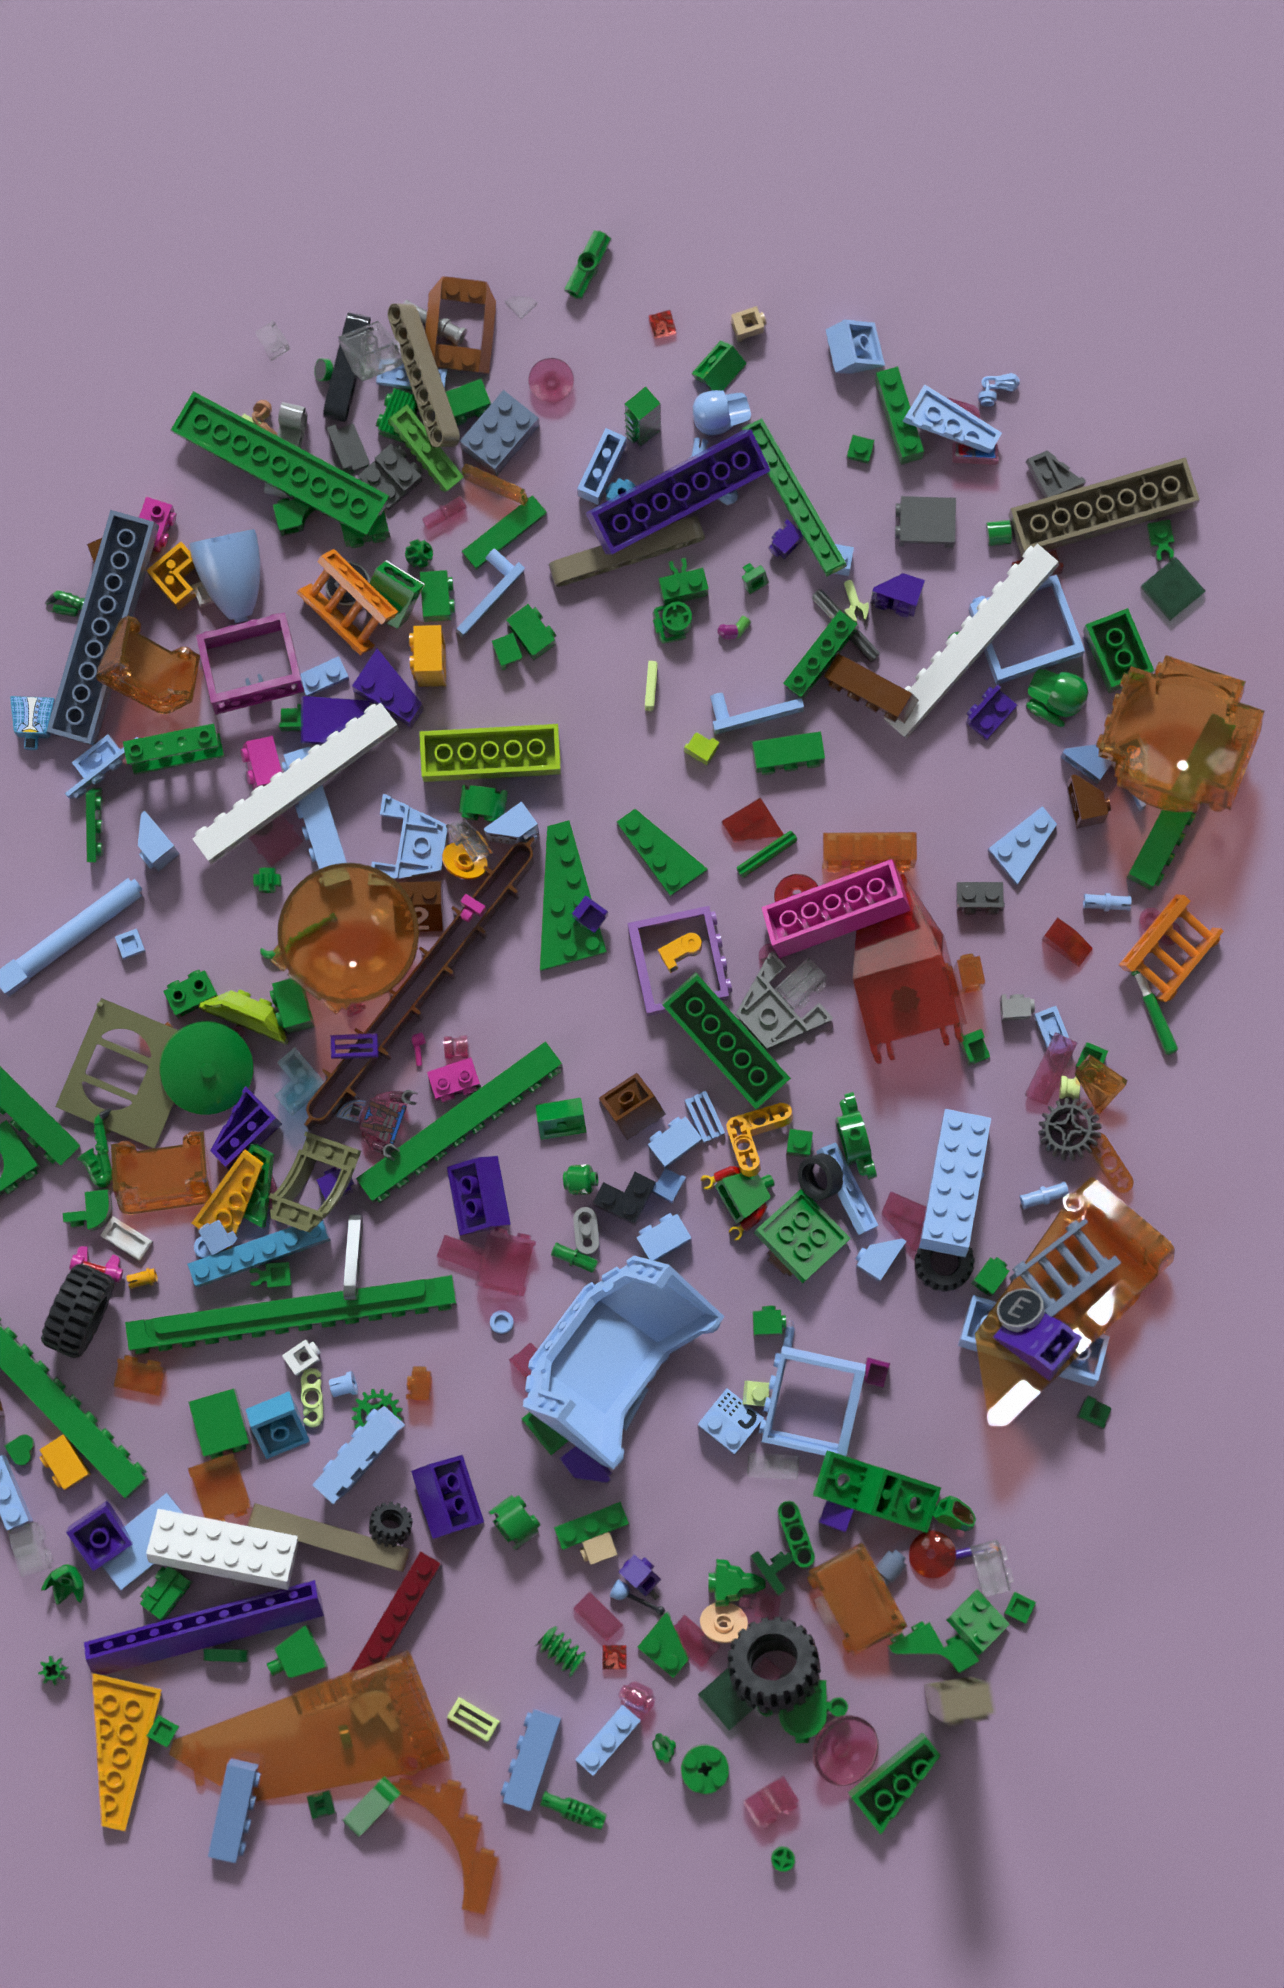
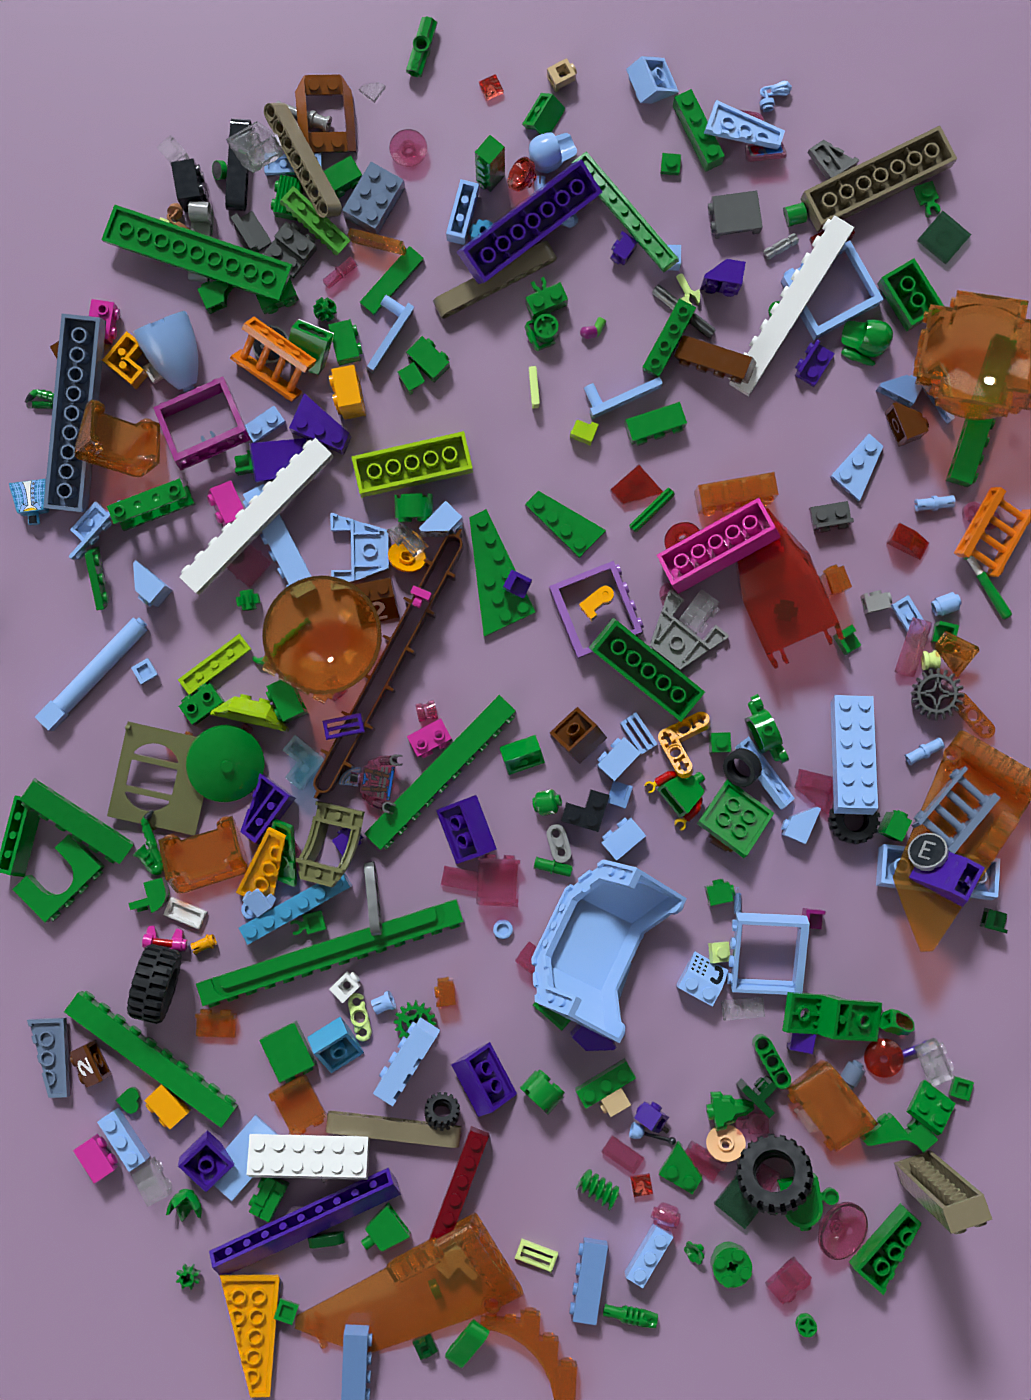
camera: 15 degrees left, 5 degrees up
(214, 949) = (214, 664): none -> lime plate
(284, 380) = (188, 182): none -> black brick
(417, 1040) = (394, 710): dark pink hand -> none
(680, 433) = (522, 174): none -> clear red piece
(754, 578) = (603, 284): green tile -> none
(975, 567) = (781, 246): none -> light grey axle
(1099, 1024) = (946, 604): none -> light blue brick

